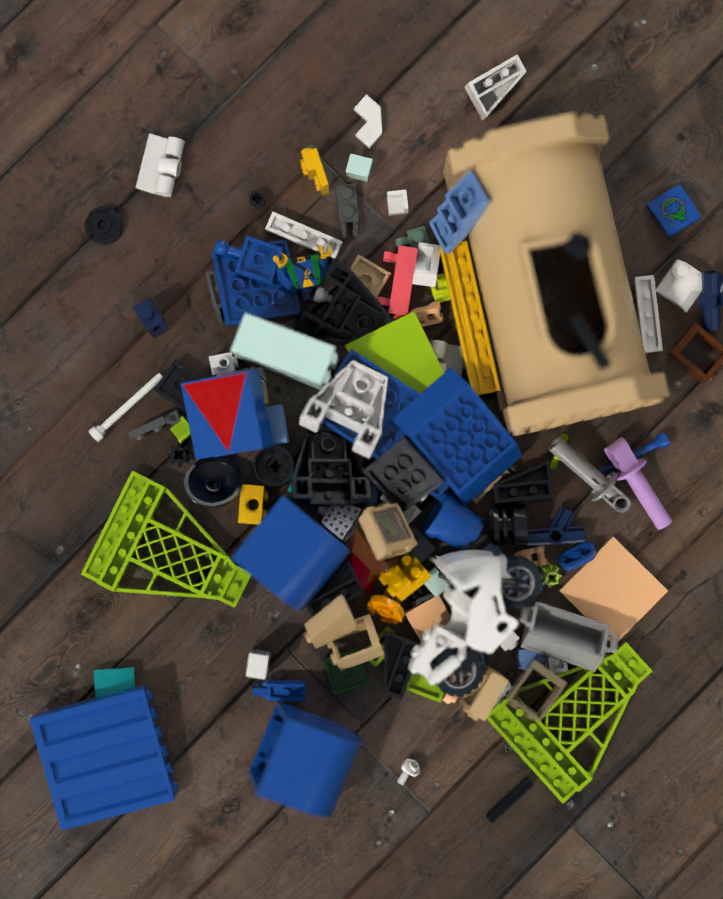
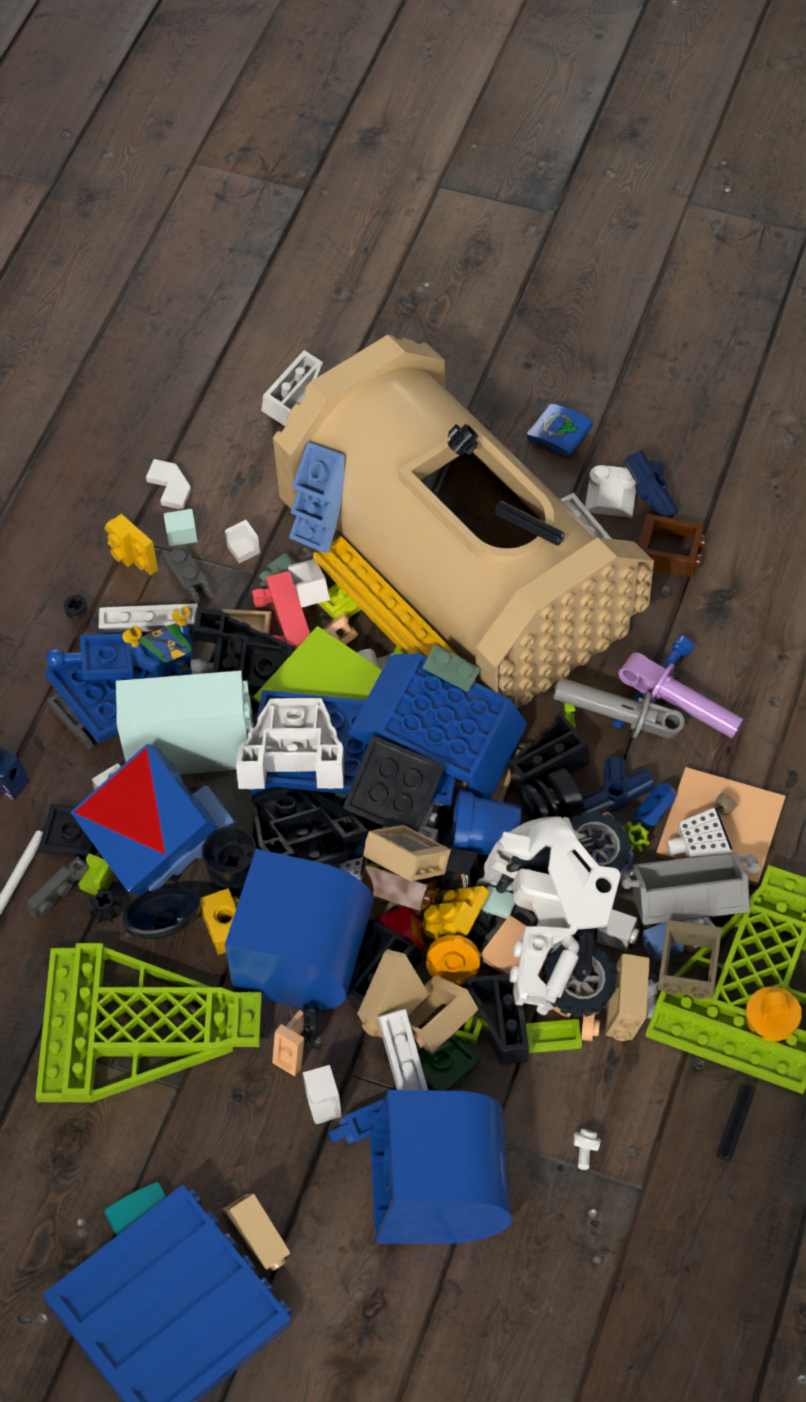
camera: 25 degrees left, 30 degrees down
(178, 730) = (257, 1231): none -> tan slope
(250, 618) = (289, 1043): none -> light nougat piece
(319, 672) = (402, 1051): none -> white plate
(485, 405) = (451, 668): none -> sand green plate
(570, 750) = (773, 1013): none -> light orange tile
(593, 601) = (700, 836): none -> white torso
(624, 580) = (724, 801): none -> dark tan hinge

